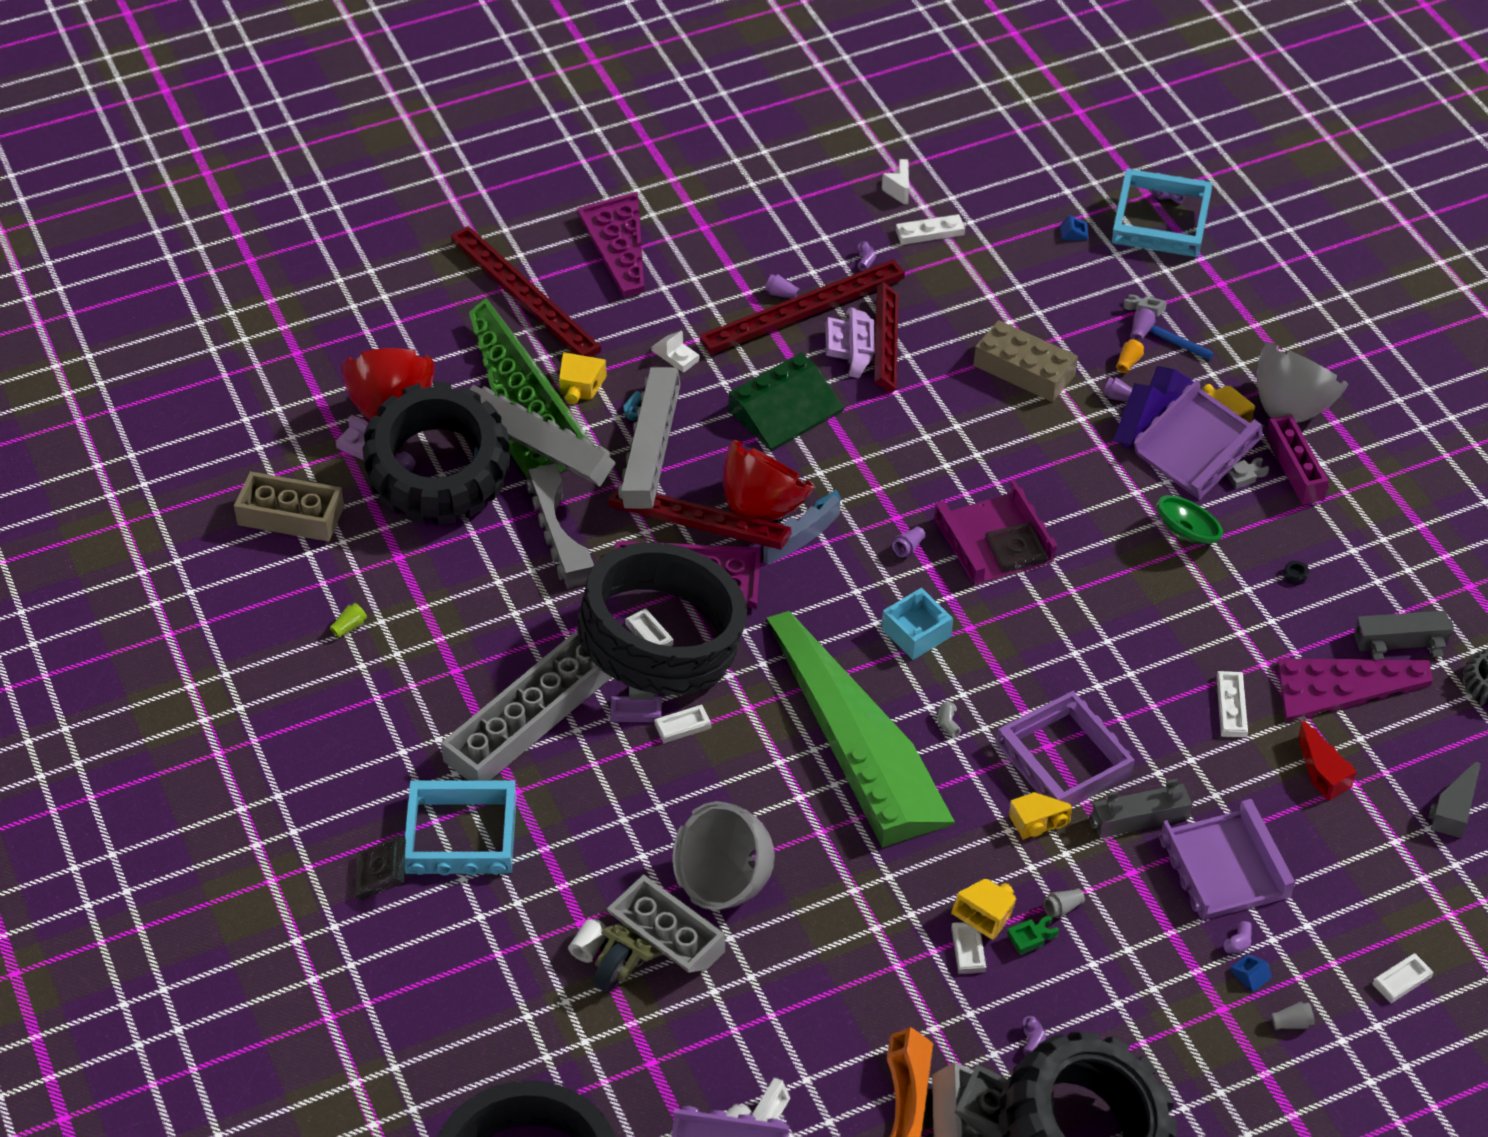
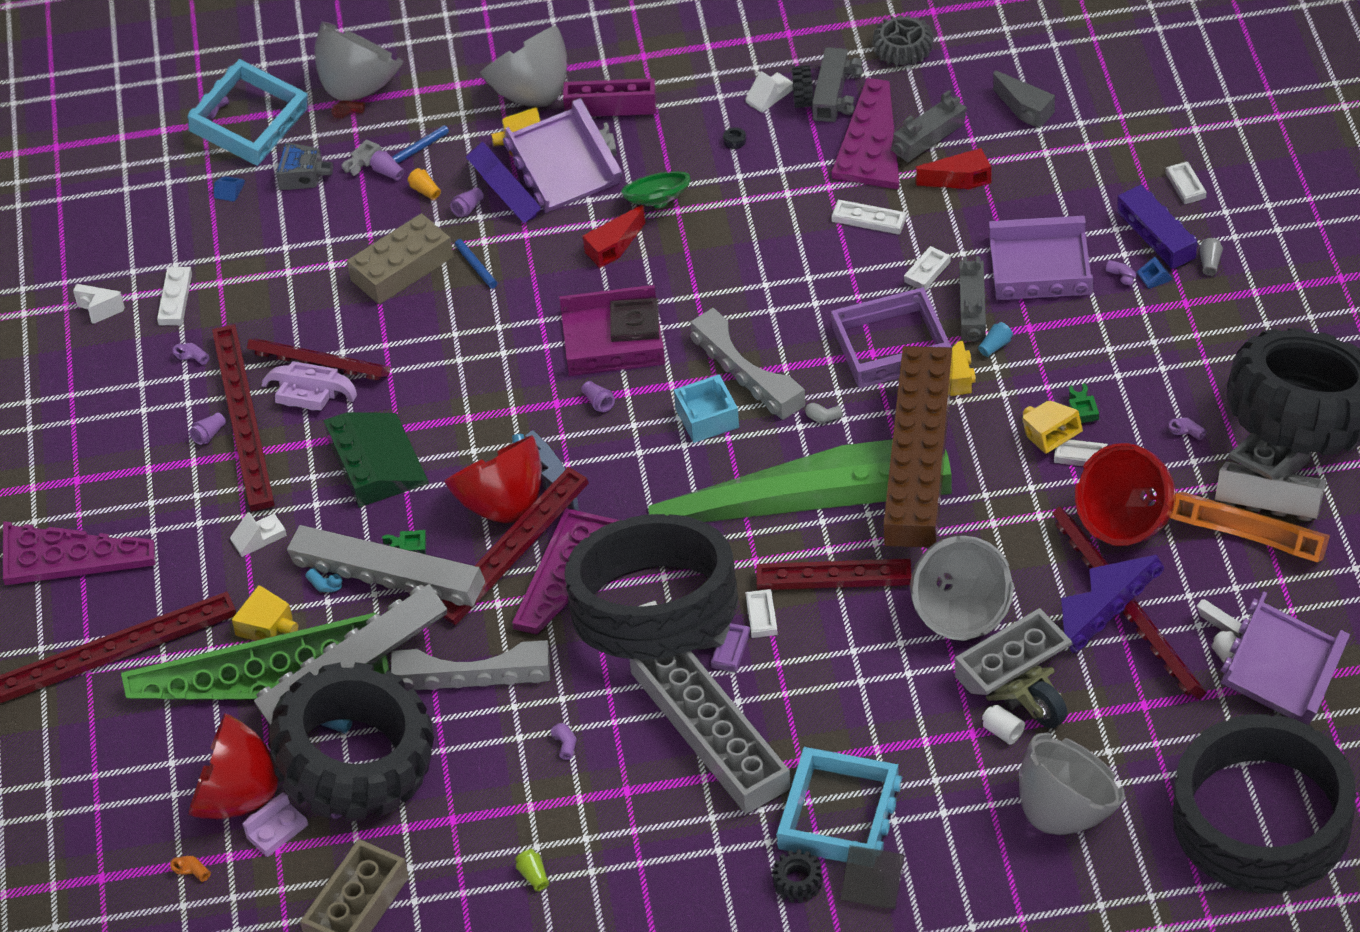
camera: 70 degrees left, 0 degrees up
(314, 400) = (190, 865): none -> orange arm
(376, 824) = (799, 889): none -> black tyre
(499, 612) = (568, 739): none -> medium lavender arm
(517, 991) = (1065, 786): none -> light grey piece
(690, 451) = (408, 540): none -> green plate
(741, 764) = (834, 574): none -> dark red plate
(757, 991) = (1110, 592): none -> dark purple slope
(770, 1021) = (1132, 611): none -> dark red plate
(891, 983) = (1113, 492): none -> red piece
(897, 786) = (918, 447): none -> reddish brown brick
(1014, 613) = (777, 391): none -> light grey arch
(1046, 418) = (475, 263): none -> blue bar
(1060, 903) = (1055, 378): light grey cone -> none
(1096, 841) = (997, 337): none -> dark azure cone
(1113, 266) = (301, 167): none -> dark grey torso
(1114, 507) = (612, 239): none -> red slope
(1174, 764) = (927, 268): none -> white plate
(1205, 279) = (344, 108): none -> clear red arm
(1250, 256) = (351, 64): none -> light grey piece
(1312, 956) = (1157, 226): none -> dark purple brick
(1369, 584) = (768, 90): none -> white slope
(1370, 723) = (929, 127): none -> dark grey brick
(1381, 600) = (802, 86): none -> black tyre

